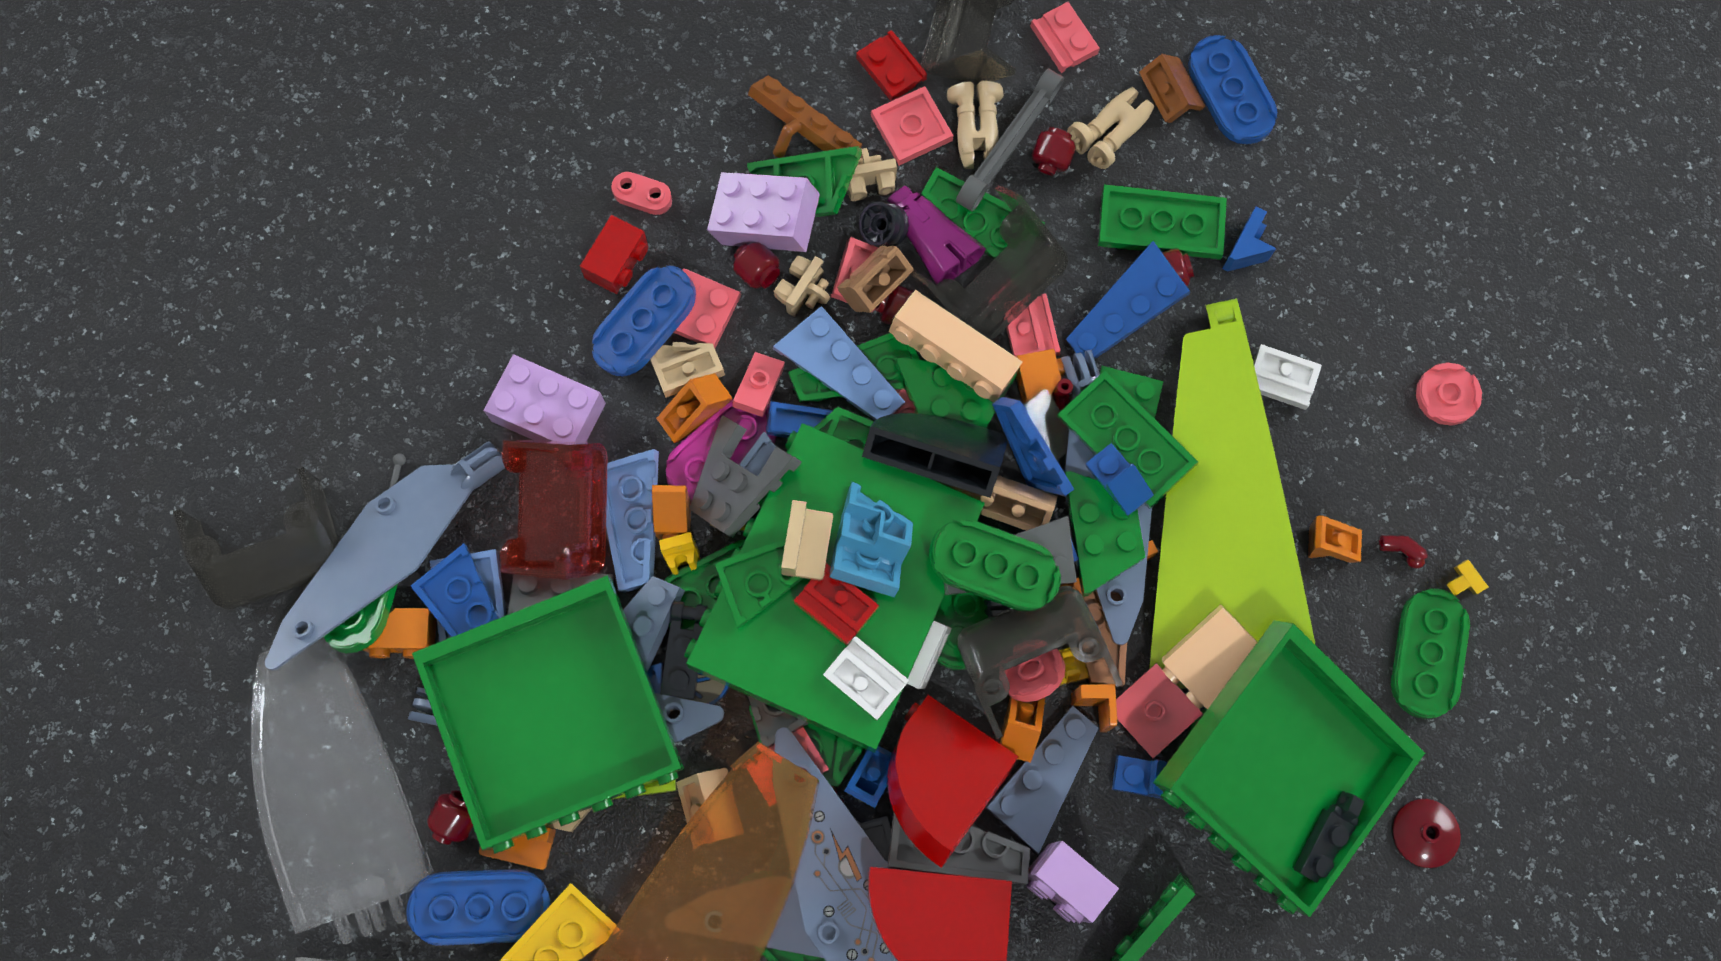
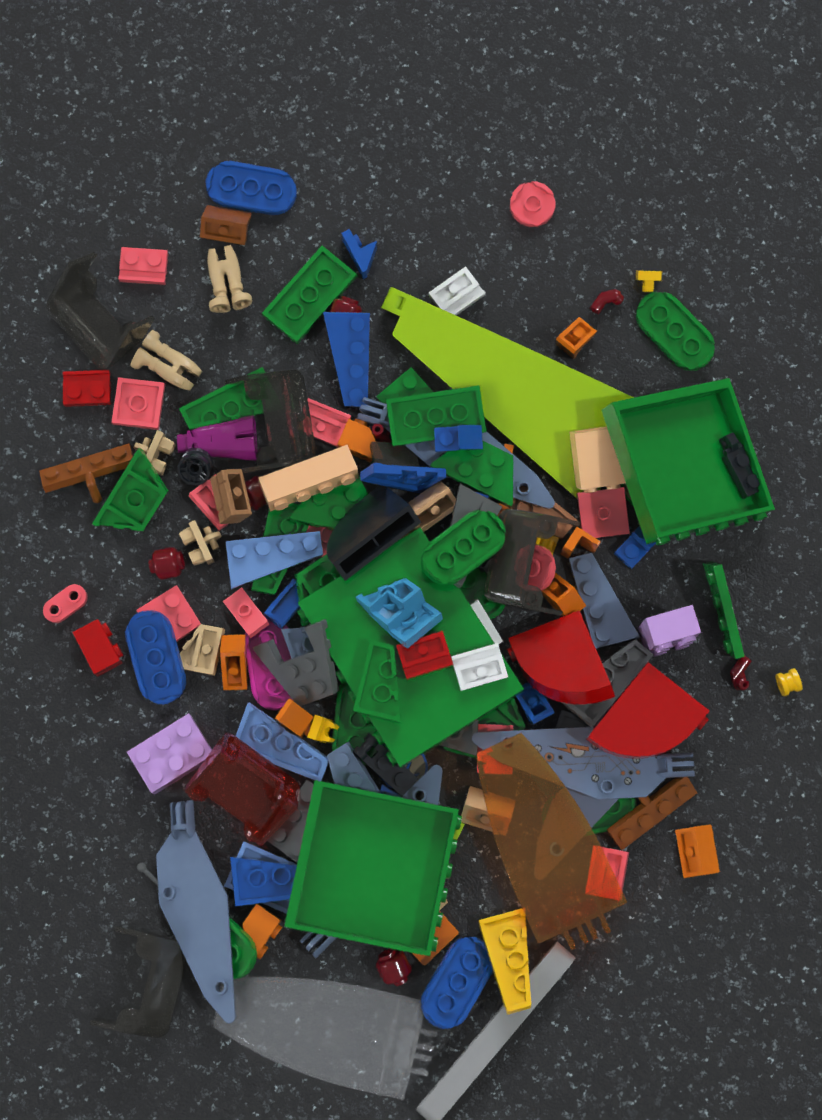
camera: 55 degrees left, 5 degrees up
(763, 210) = (137, 535): lavender brick -> none
(806, 542) = (377, 647): tan panel -> none
(977, 184) = (193, 350): dark grey piece -> none
(1053, 151) = (217, 328): dark red head -> none
(1411, 837) = (767, 418): dark red dish -> none

